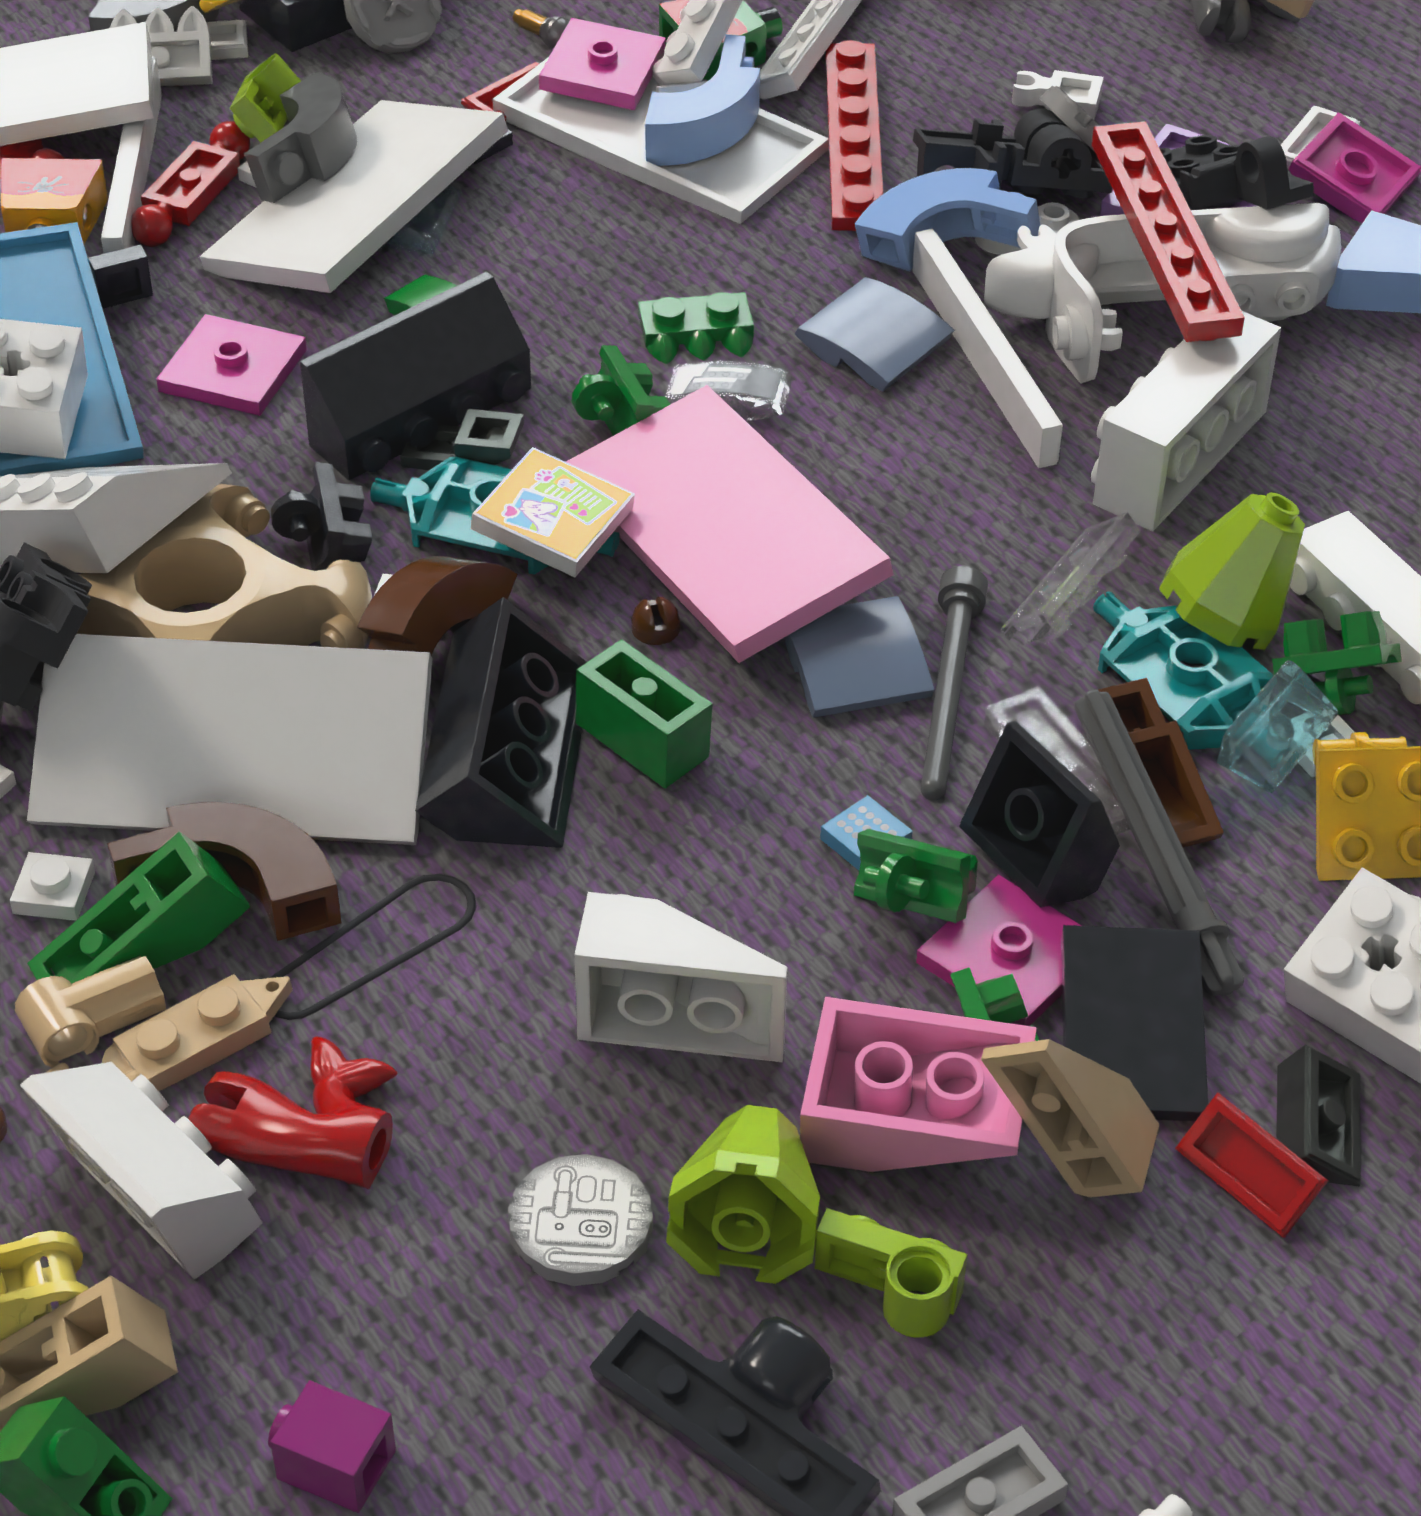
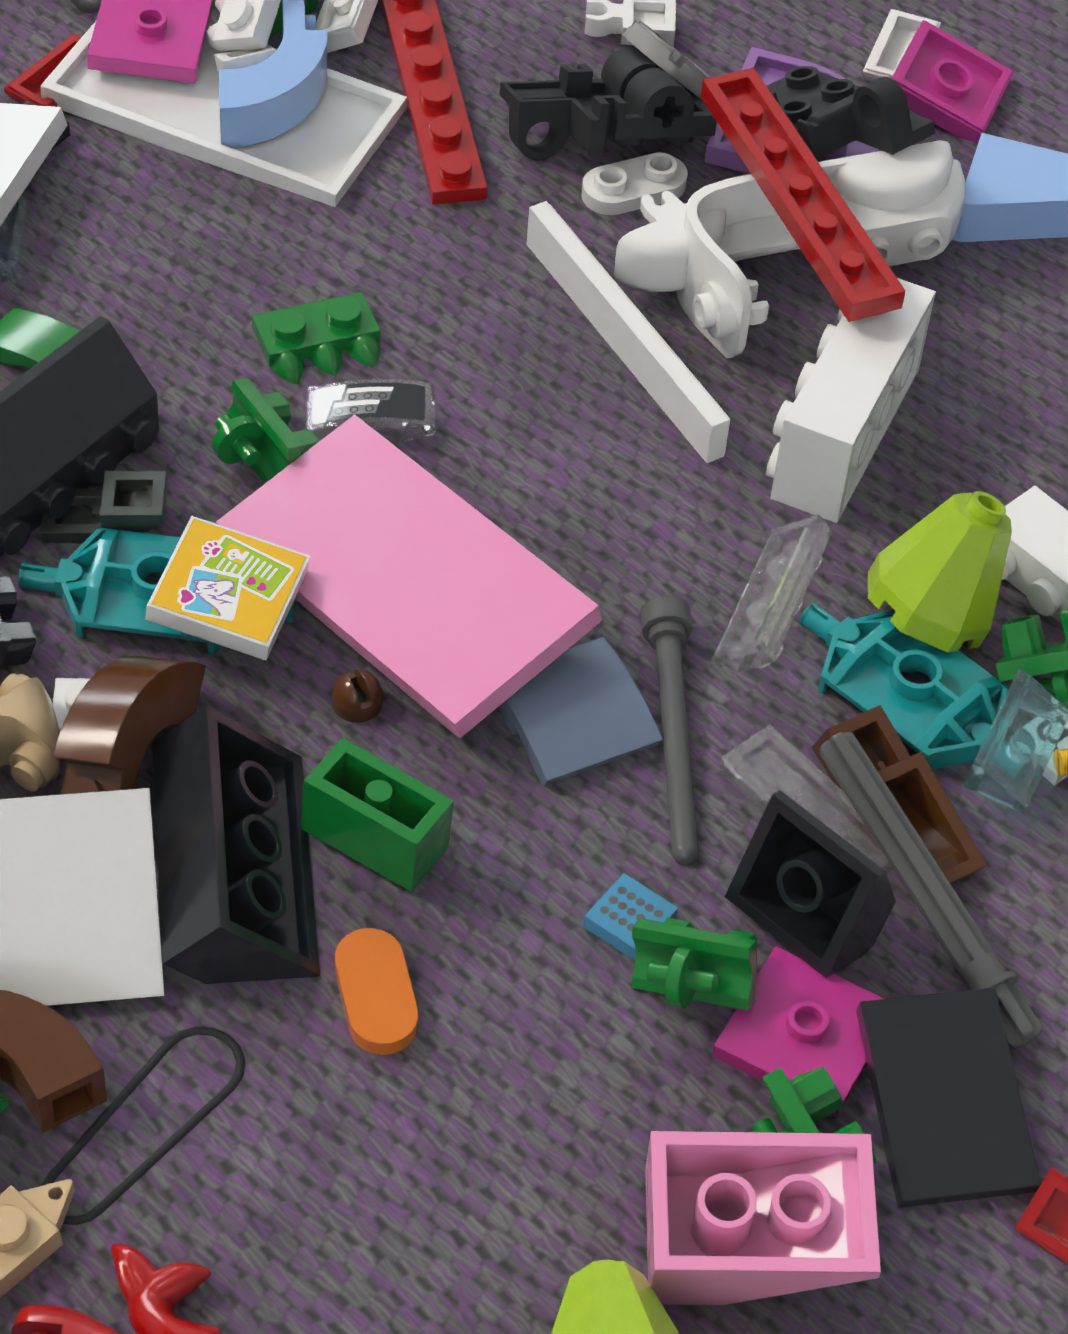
camera: 15 degrees left, 5 degrees up
(610, 855) = (376, 991): none -> orange tile
(674, 983) = (486, 1131): white slope -> none
(875, 332) = (507, 324): slope -> none
(950, 203) = (554, 170): light blue arch -> none
(1079, 1114) = (933, 1225): tan slope -> none

